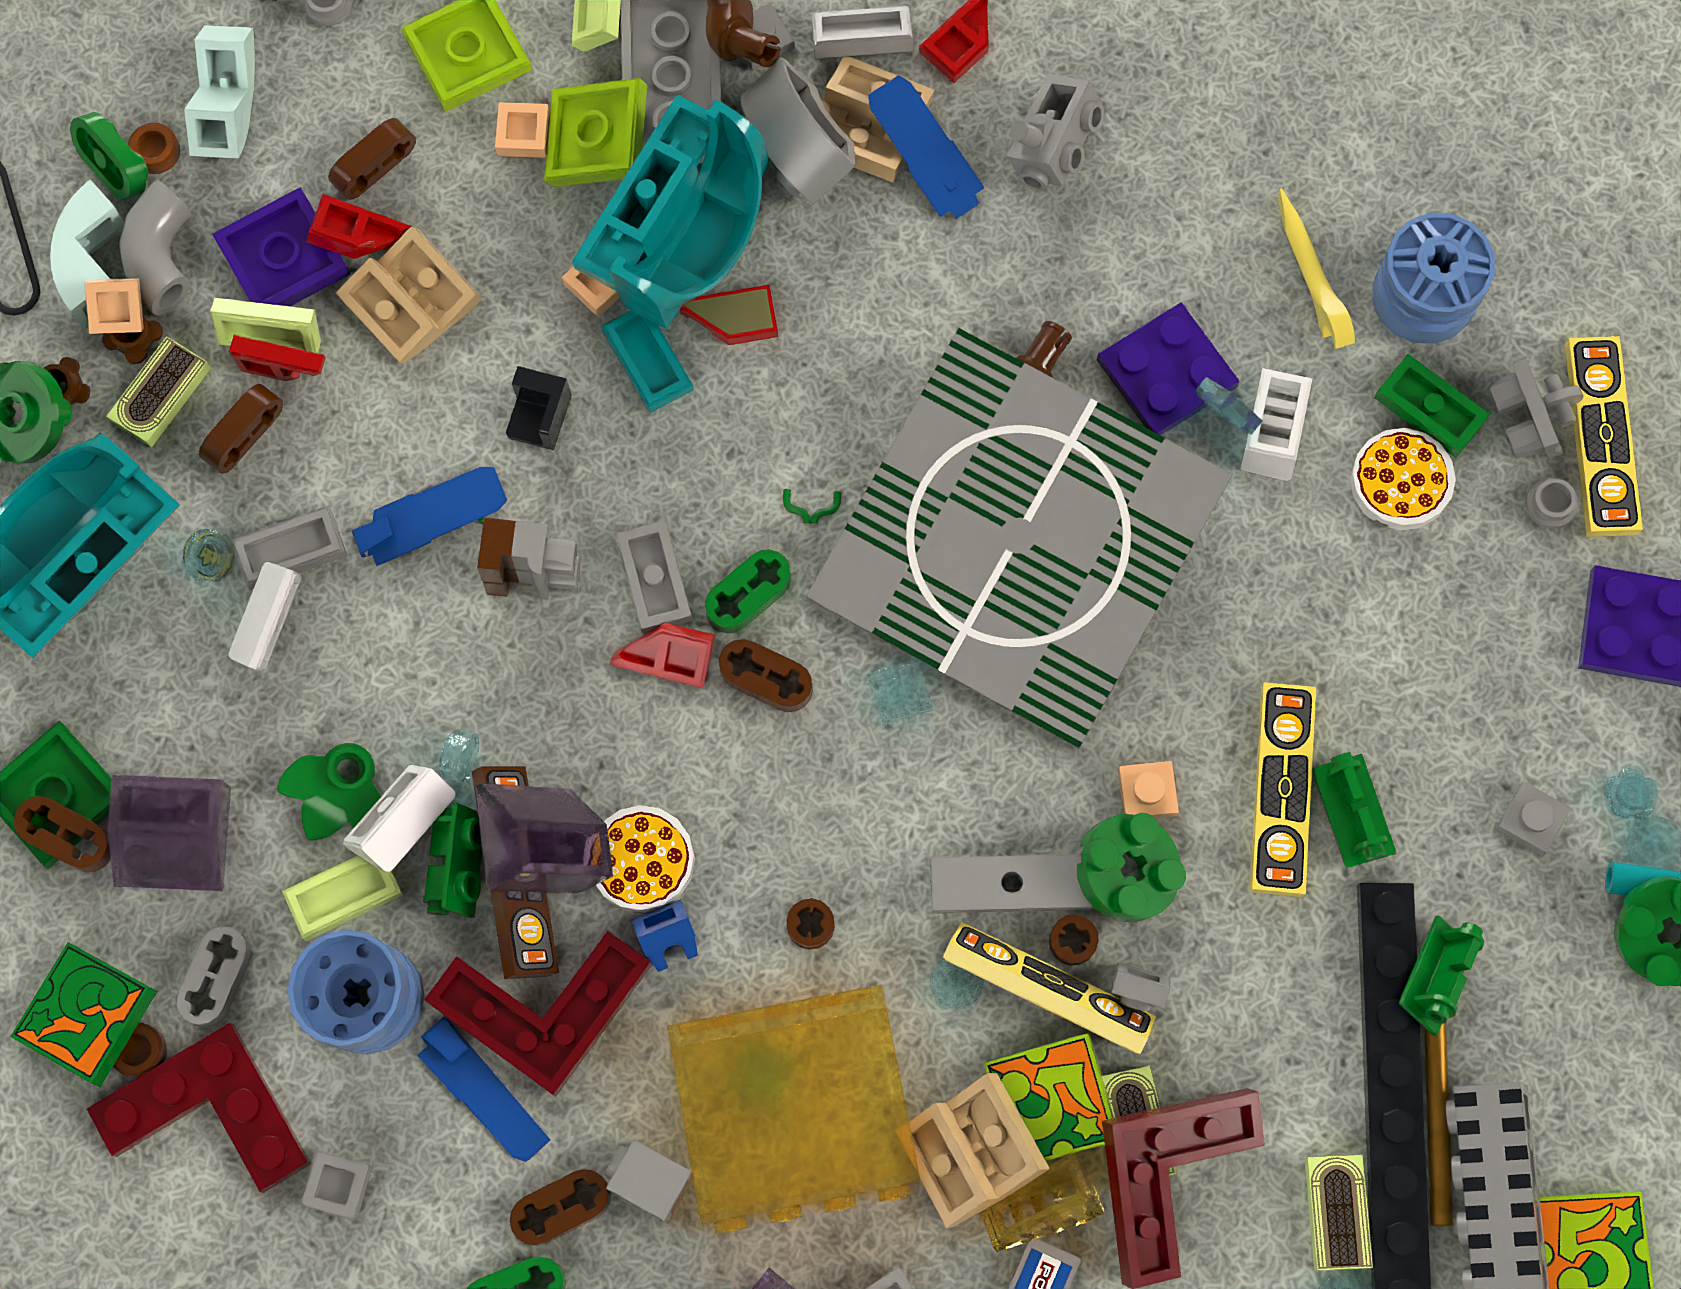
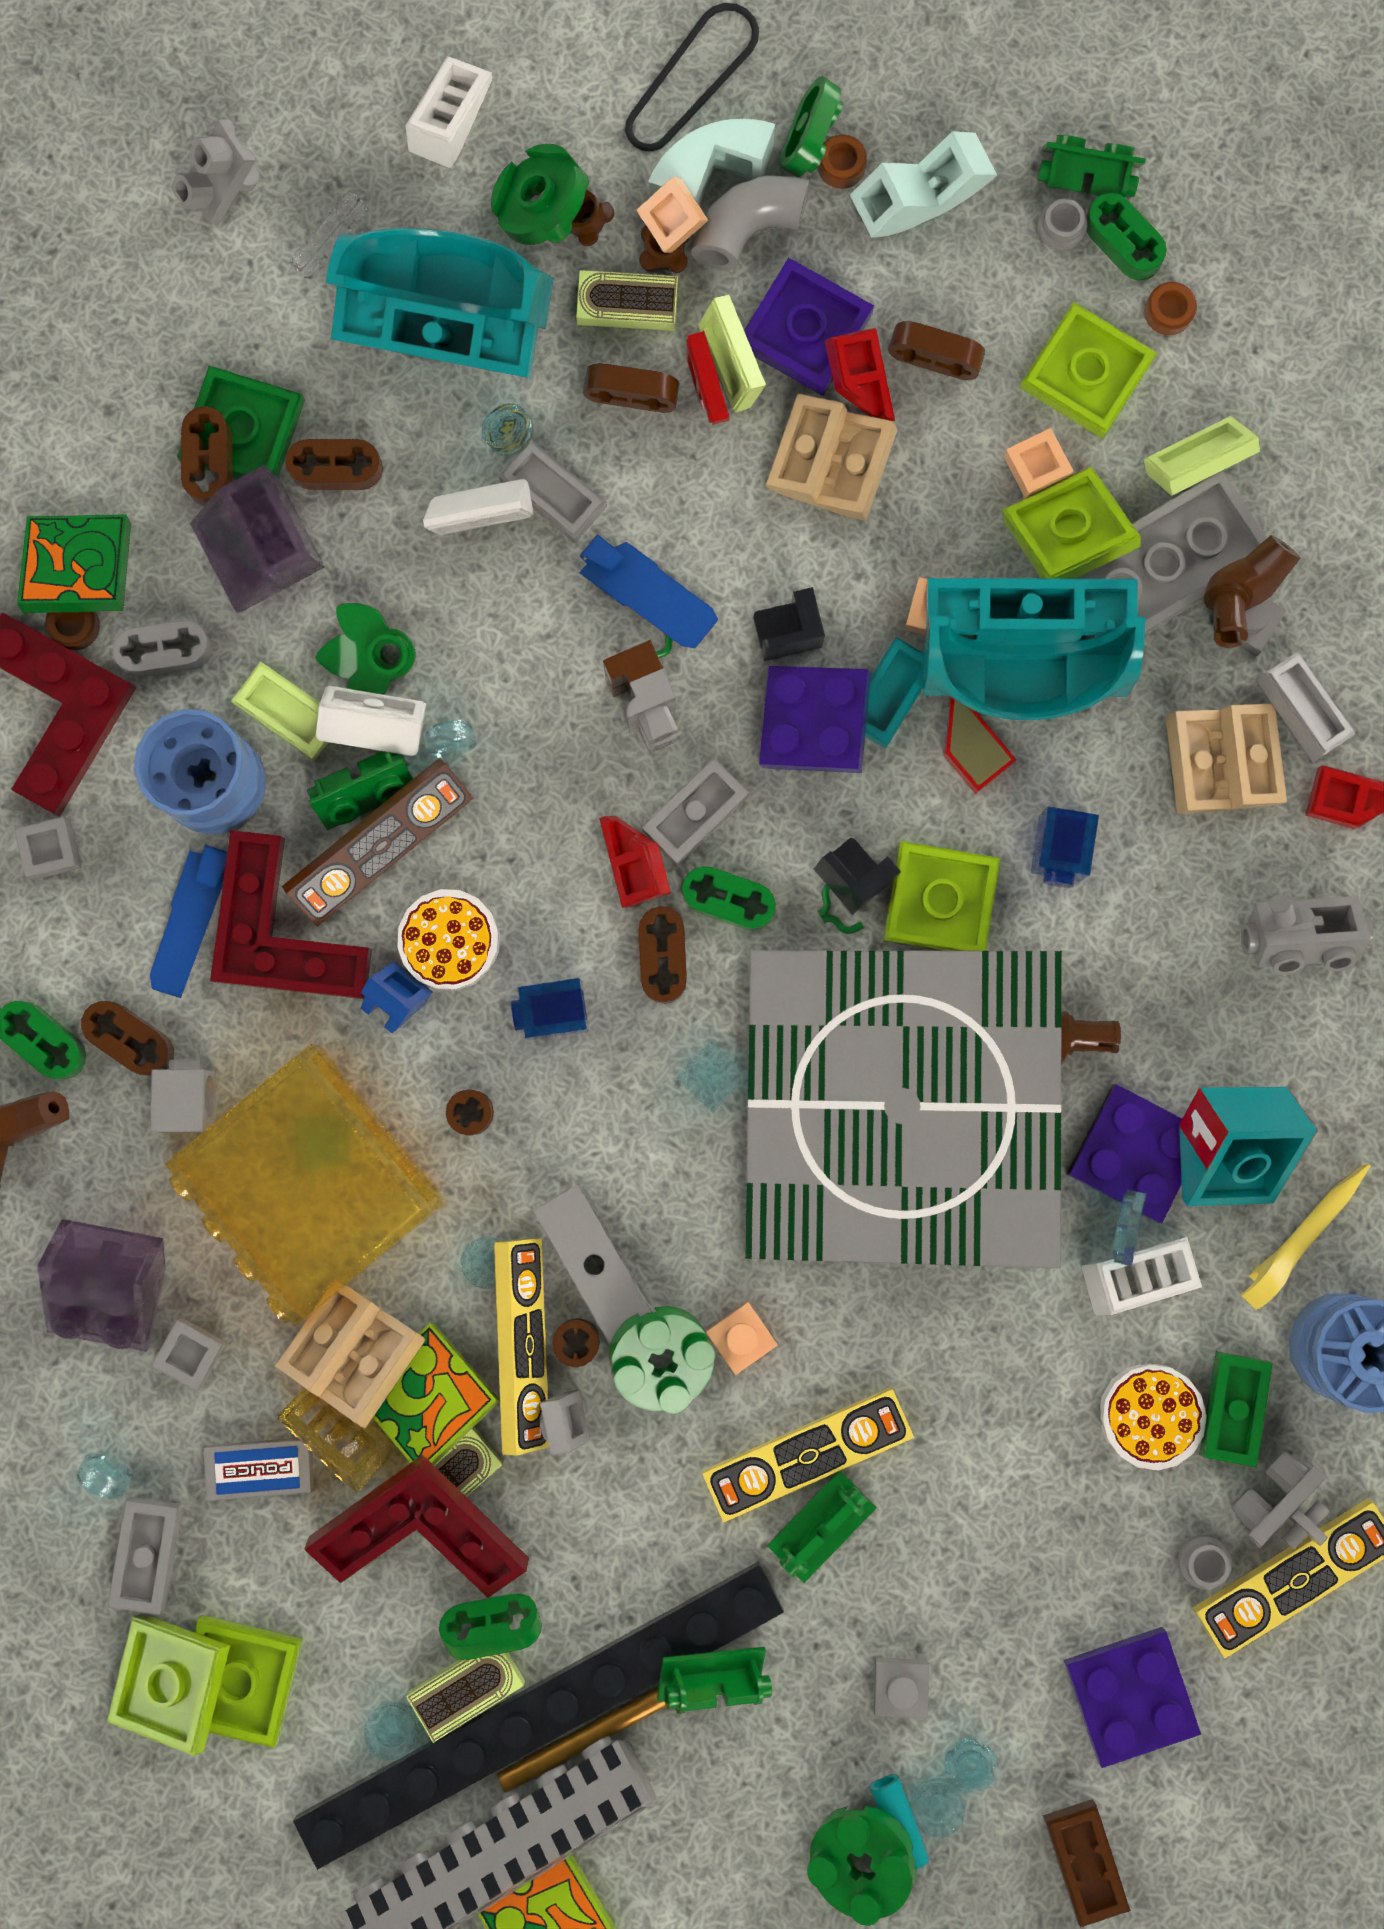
camera: 60 degrees right, 10 degrees up
(132, 719) = (334, 453): none -> reddish brown beam
(541, 840) = (412, 847): clear purple slope -> none
(633, 431) = (815, 719): none -> dark purple plate
(759, 796) = (550, 1009): none -> clear blue brick
(791, 473) = (854, 874): none -> black panel
(798, 131) = (1171, 703): light grey brick -> none
(852, 412) = (941, 898): none -> lime tile
(867, 284) = (1064, 846): none -> clear blue brick
(925, 147) = (1224, 825): blue piece -> none
(1206, 277) = (1241, 1144): none -> teal slope
(1292, 1155) = (490, 1626): none -> green beam

